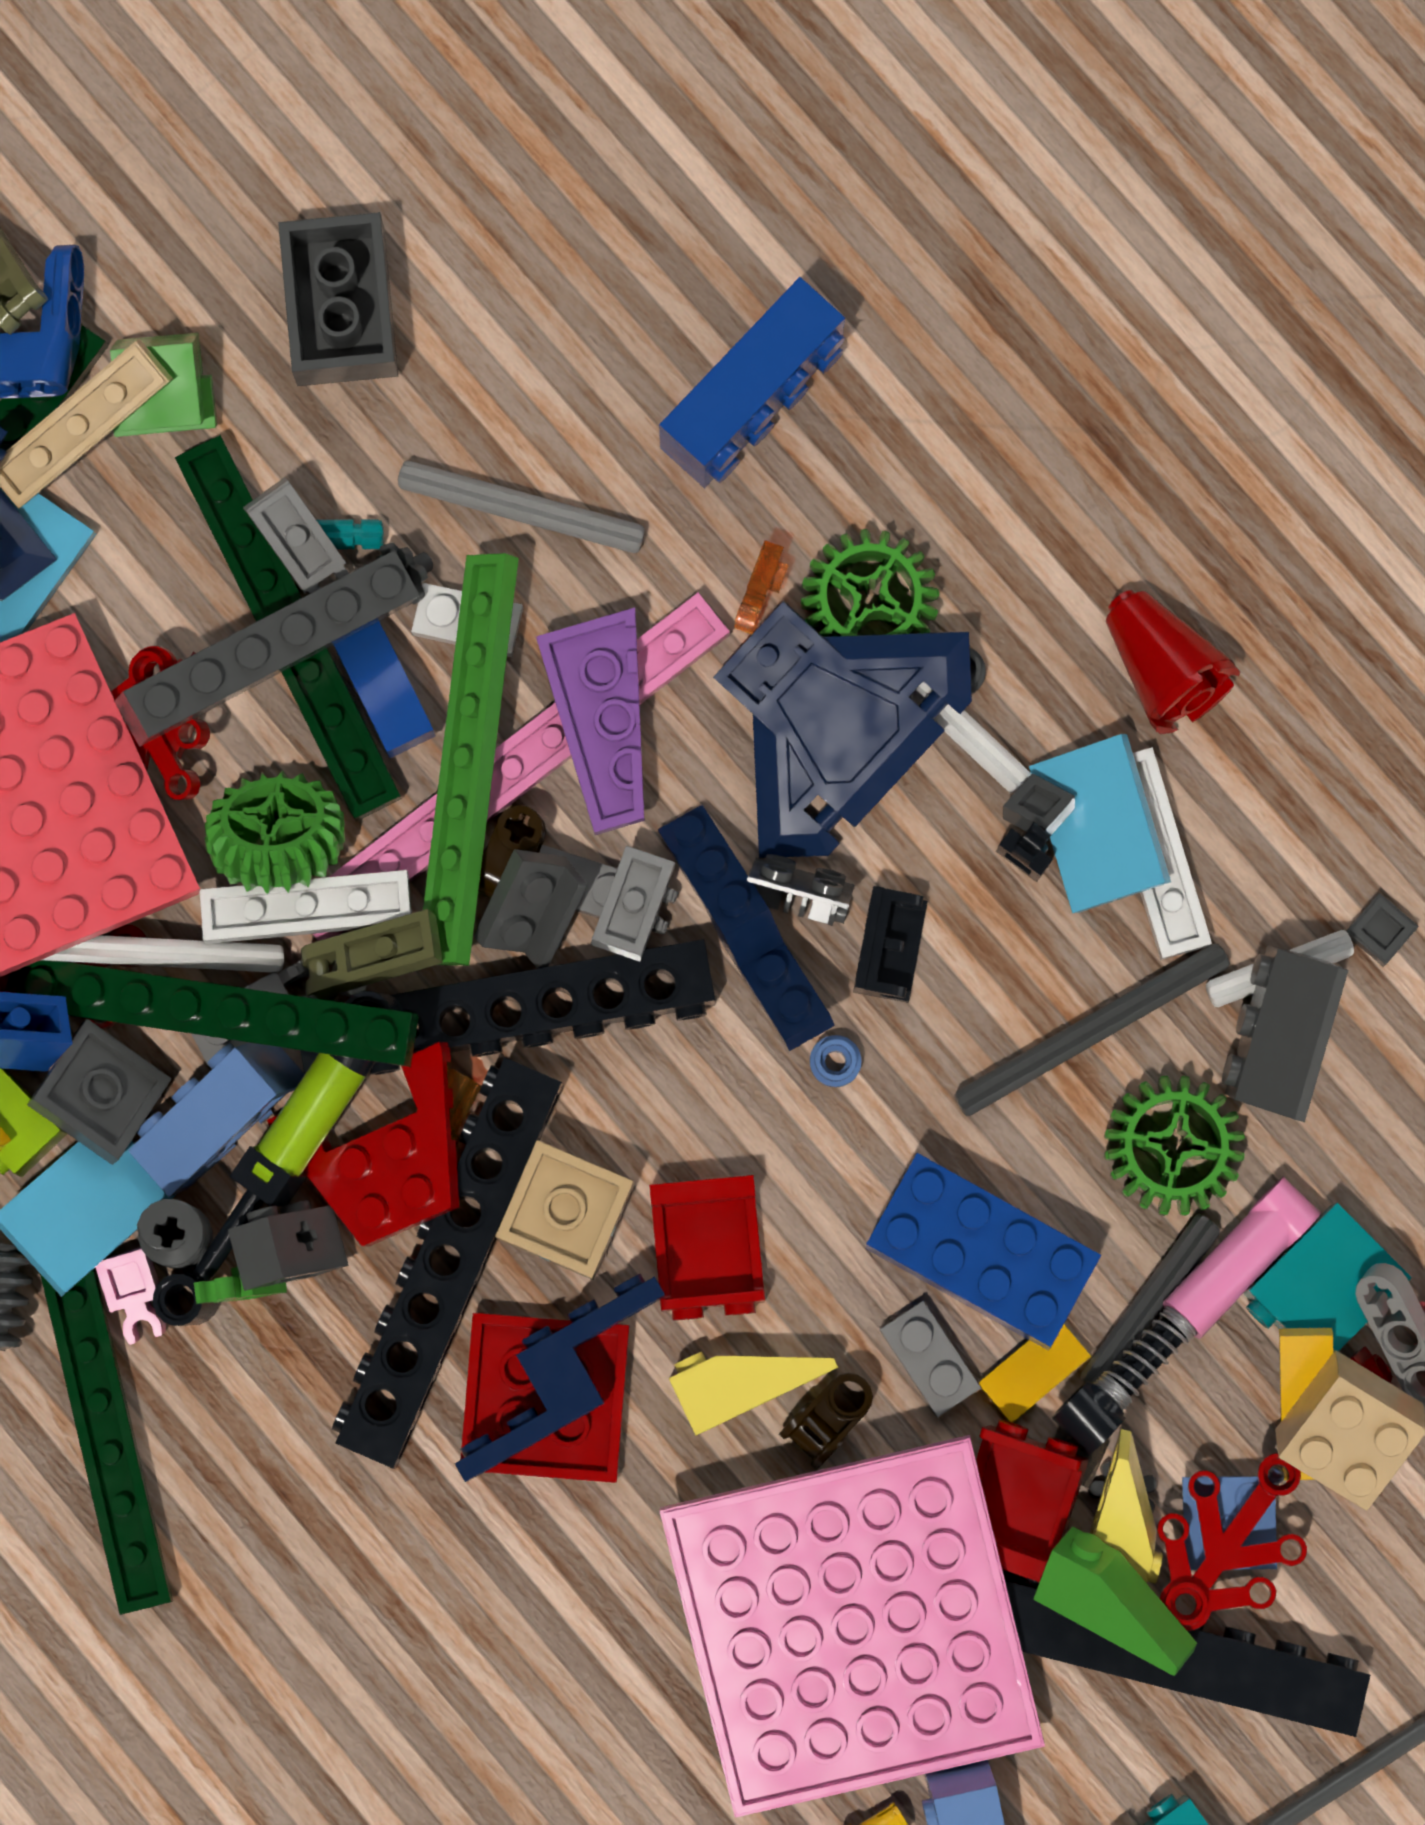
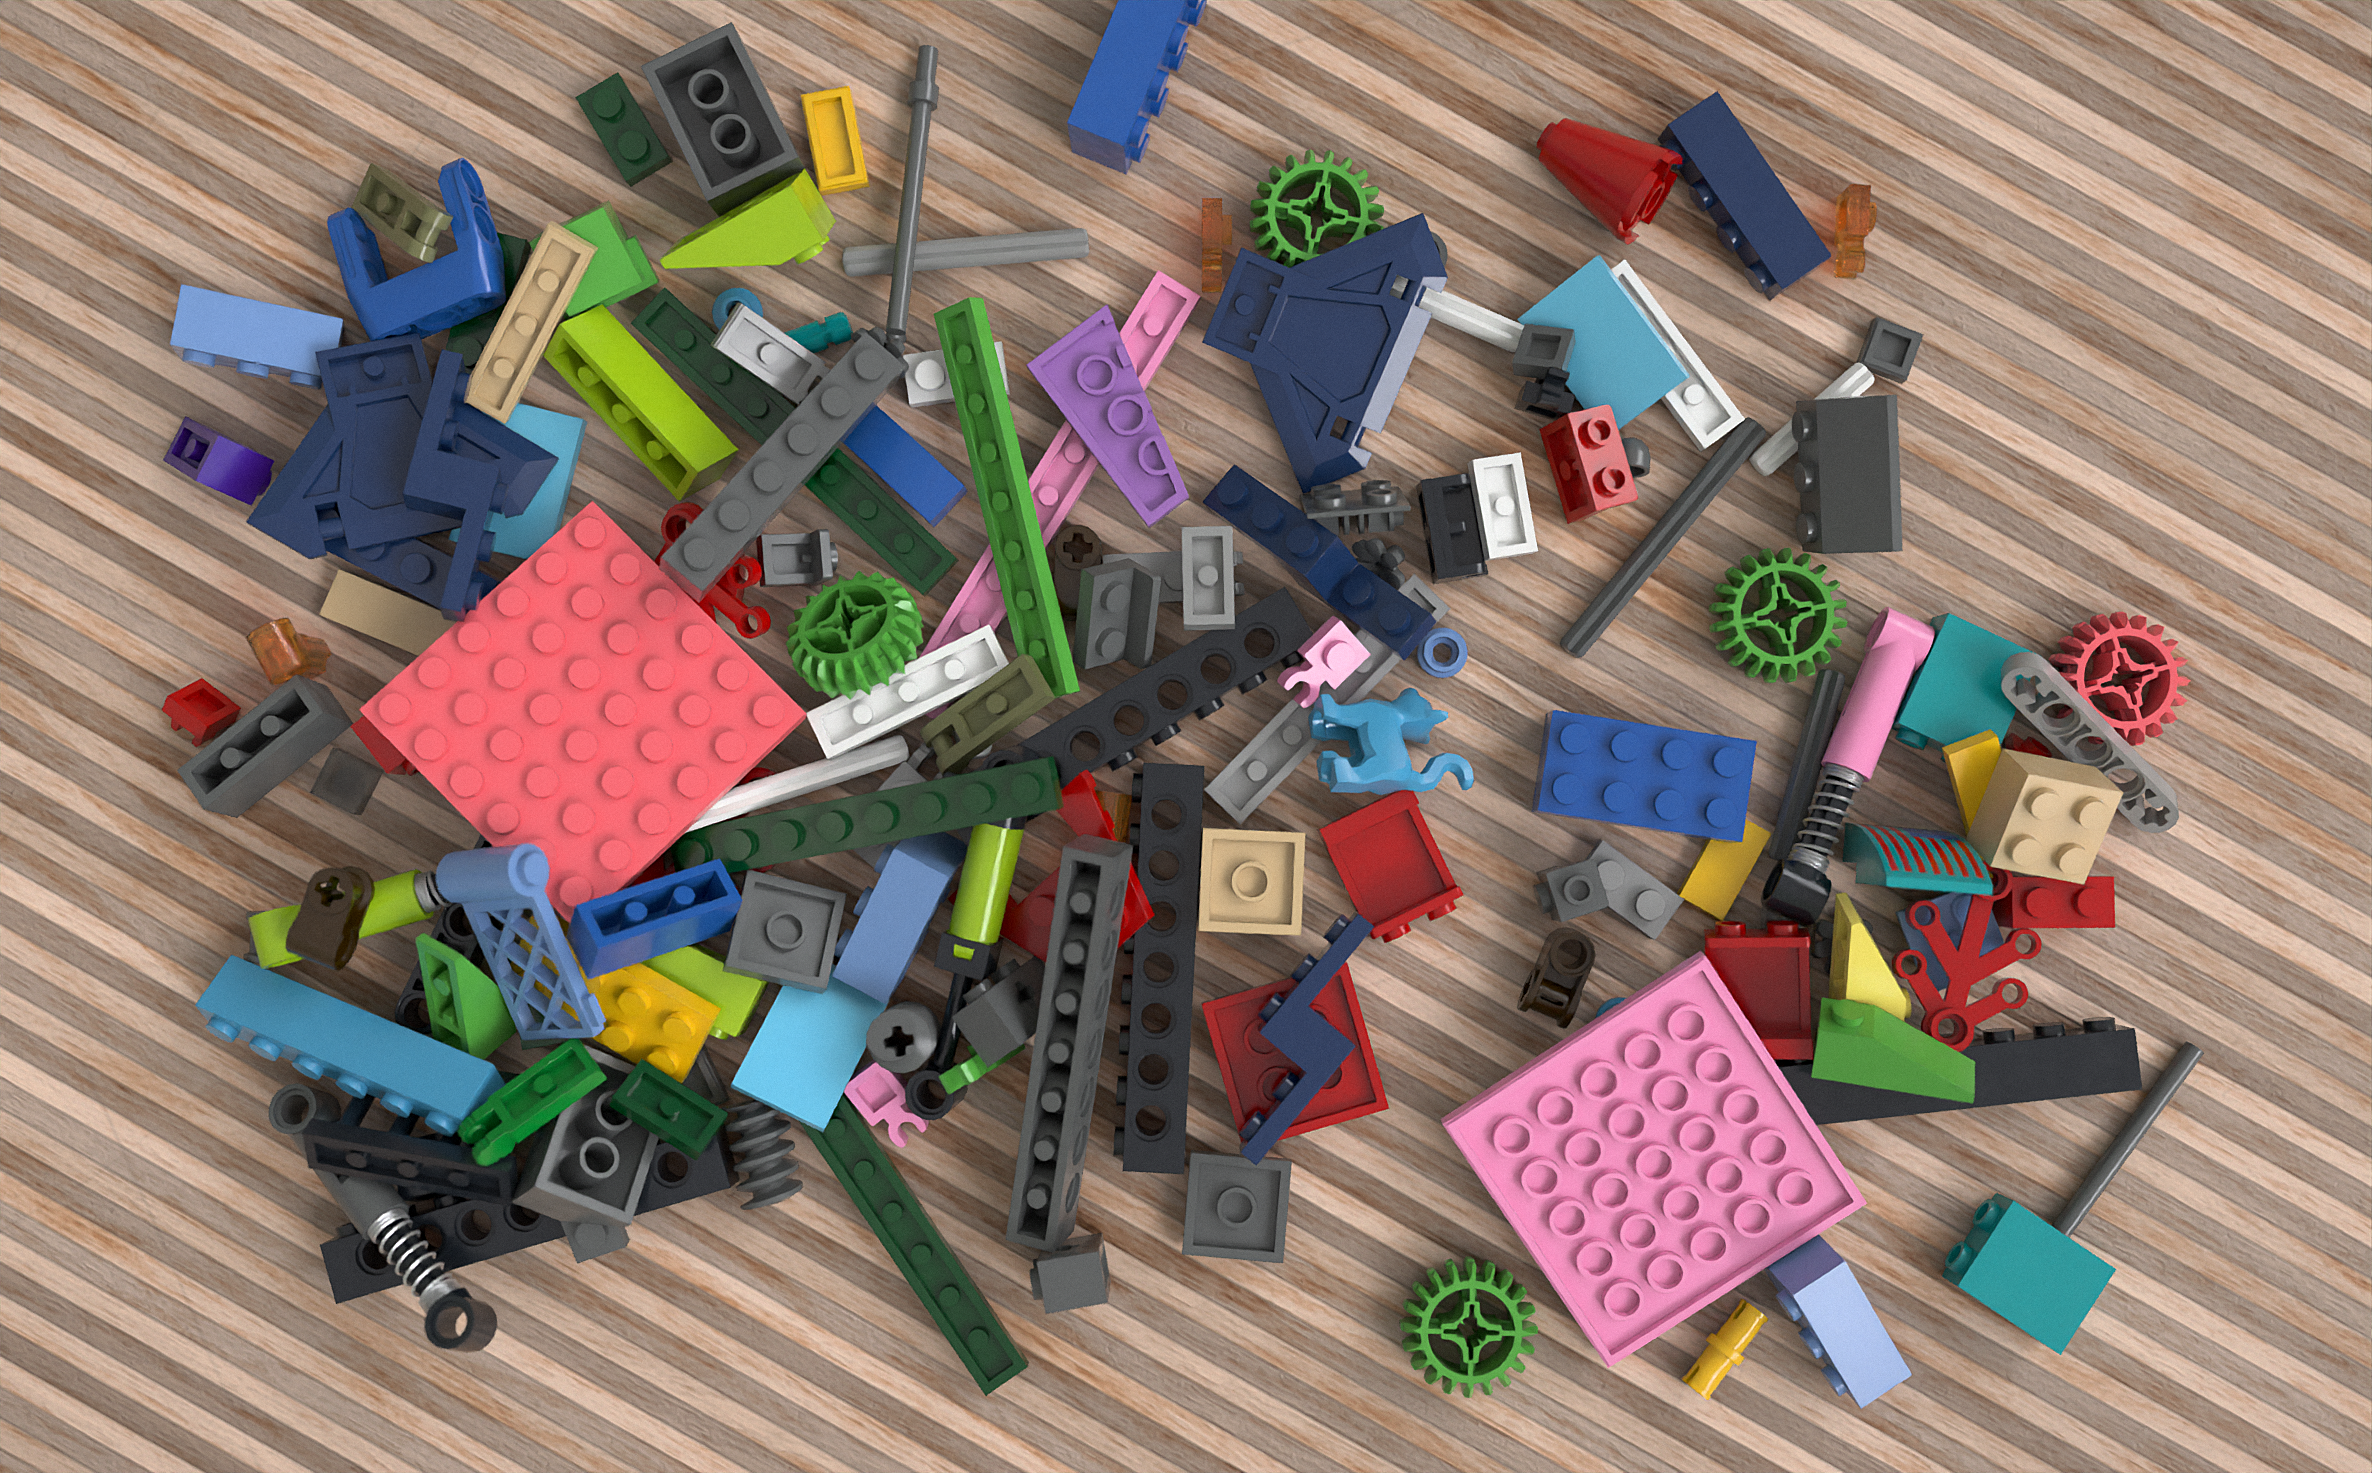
camera: 20 degrees left, 5 degrees up
(155, 536) = (608, 363): none -> lime brick
(238, 270) = (624, 129): none -> dark green plate
(246, 739) = (796, 558): none -> dark grey bracket
(248, 1523) = (1072, 1275): none -> dark grey brick
(280, 467) = (730, 298): none -> dark azure plate
(329, 1296) = (1068, 1041): none -> dark grey brick
(332, 417) = (764, 231): none -> lime slope
(432, 1523) = (1236, 1207): none -> dark grey plate
(436, 354) = (835, 140): none -> yellow tile
(535, 347) = (923, 100): none -> dark grey bar
(630, 1683) = (1490, 1328): none -> bright green gear
(688, 1072) = (1288, 736): none -> light grey plate
(722, 1022) = (1330, 658): none -> bright pink plate
(732, 1385) = (1462, 981): light yellow slope -> none
(735, 1126) = (1377, 746): none -> dark azure animal
(807, 950) = (1380, 560): none -> dark grey plant
(871, 1335) = (1570, 890): none -> dark grey bracket
(946, 941) = (1502, 506): none -> white plate
(1044, 929) = (1588, 462): none -> red bracket
(1088, 941) = (1637, 456): none -> dark grey hinge
(1211, 1427) = (1914, 859): none -> teal slope
(1289, 730) = (1743, 197): none -> dark blue brick
(1339, 1524) = (2057, 903): none -> red brick
(1392, 790) = (1853, 222): none -> clear orange plate

